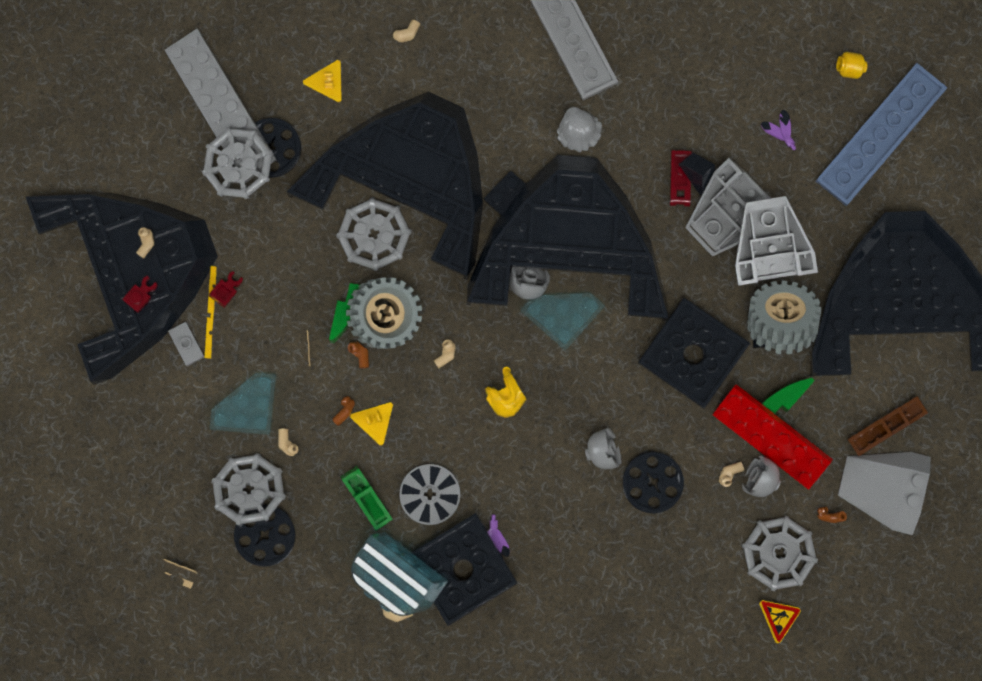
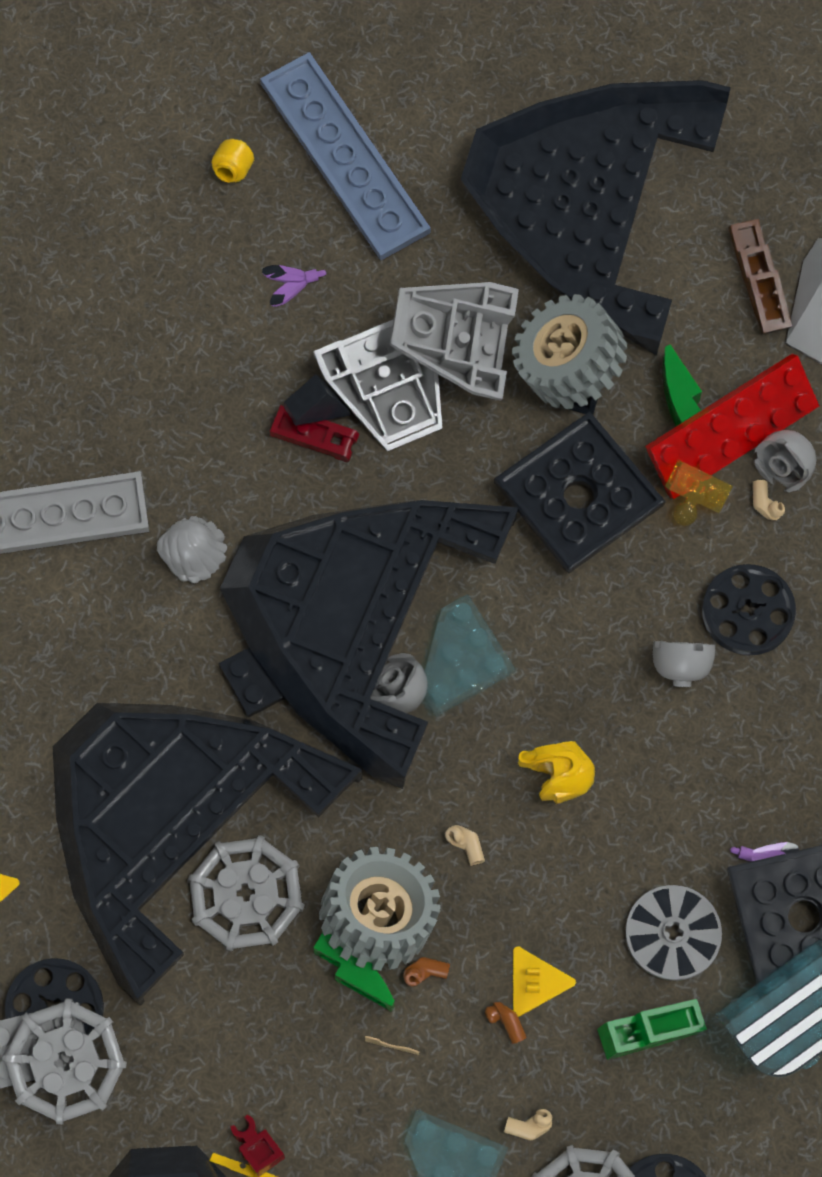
camera: 75 degrees left, 10 degrees down
(721, 426) = (697, 488): none -> clear yellow plate

